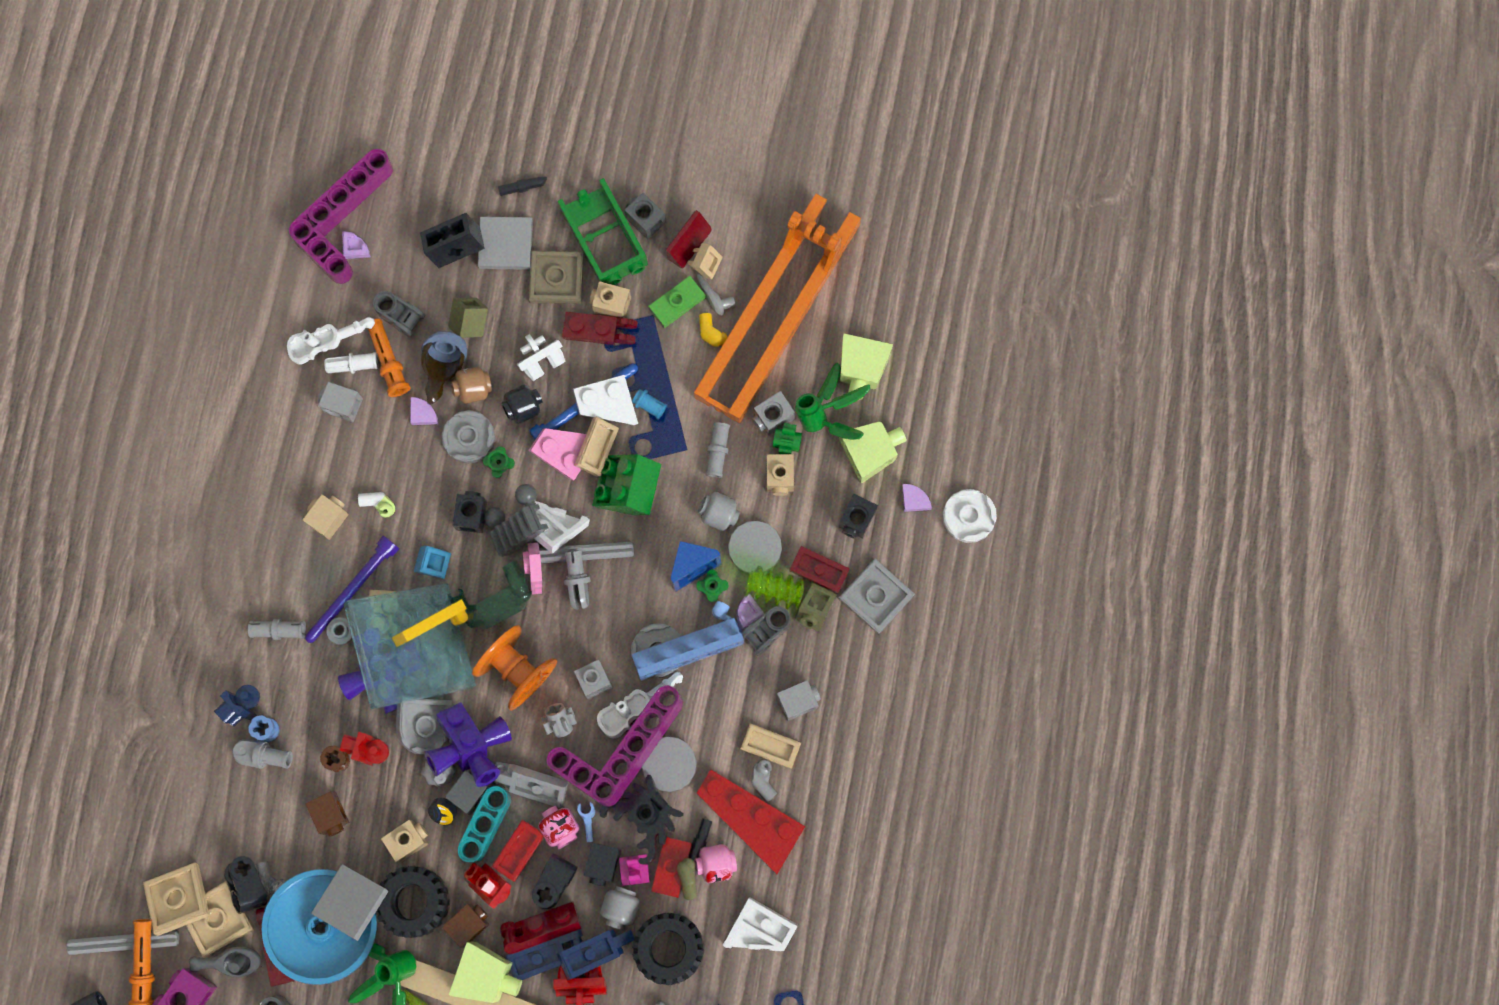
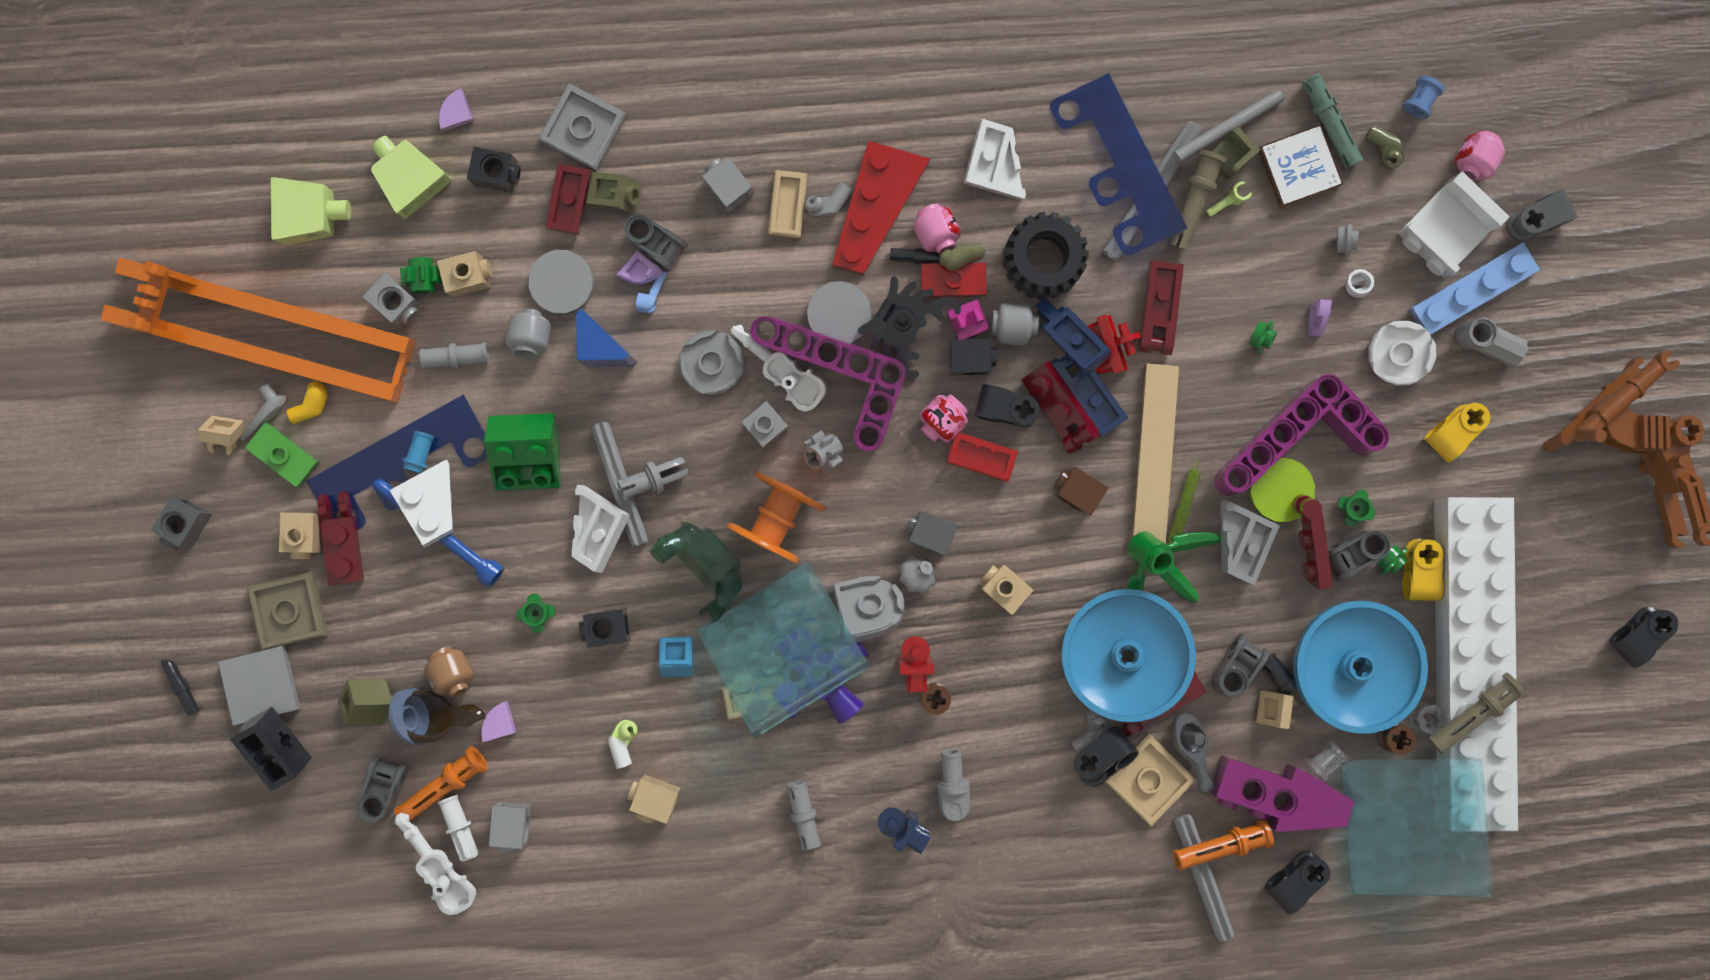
camera: 115 degrees left, 10 degrees up
(176, 899) = (1140, 831): tan tile -> none
(270, 733) = (920, 802): medium blue bush -> none
(327, 814) = (1000, 686): reddish brown brick -> none
(331, 631) = (793, 732): light grey plate -> none
(337, 212) = (269, 904): magenta beam -> none
(349, 902) = (1094, 626): light grey tile -> none
(354, 246) = (310, 870): lavender tile -> none
(383, 550) = (677, 717): dark purple piece -> none
(435, 907) = (1100, 559): black tyre -> none
(442, 811) = (961, 556): black tile -> none
(454, 612) = (732, 613): yellow hinge -> none
(467, 745) = (879, 547): dark purple brick -> none
(468, 436) = (513, 658): light grey tile -> none
(473, 834) = (979, 499): teal beam -> none
(483, 975) = (1132, 451): yellowish green torso -> none
(487, 884) = (1029, 478): red hips -> none
(519, 529) = (610, 560): dark grey gear -> none
(521, 404) = (457, 604): black head -> none
(532, 566) = (650, 526): bright pink wing -> none
(532, 784) = (903, 464): light grey hinge -> none
(551, 352) = (383, 588): white hips -> none
(559, 450) = (501, 537): bright pink wing -> none
(587, 818) = (929, 388): light blue hand -> none
(590, 207) = (186, 594): green door -> none
(596, 446) = (486, 499): tan tile -> none
(687, 649) = (701, 325): medium blue fence -> none
(688, 238) = (200, 461): dark red slope -> none
(712, 593) = (628, 316): green plate -> none
(775, 587) = (600, 242): clear neon green piece -> none
(812, 412) = (377, 254): green plant -> none
(969, 516) = (459, 44): white tile -> none

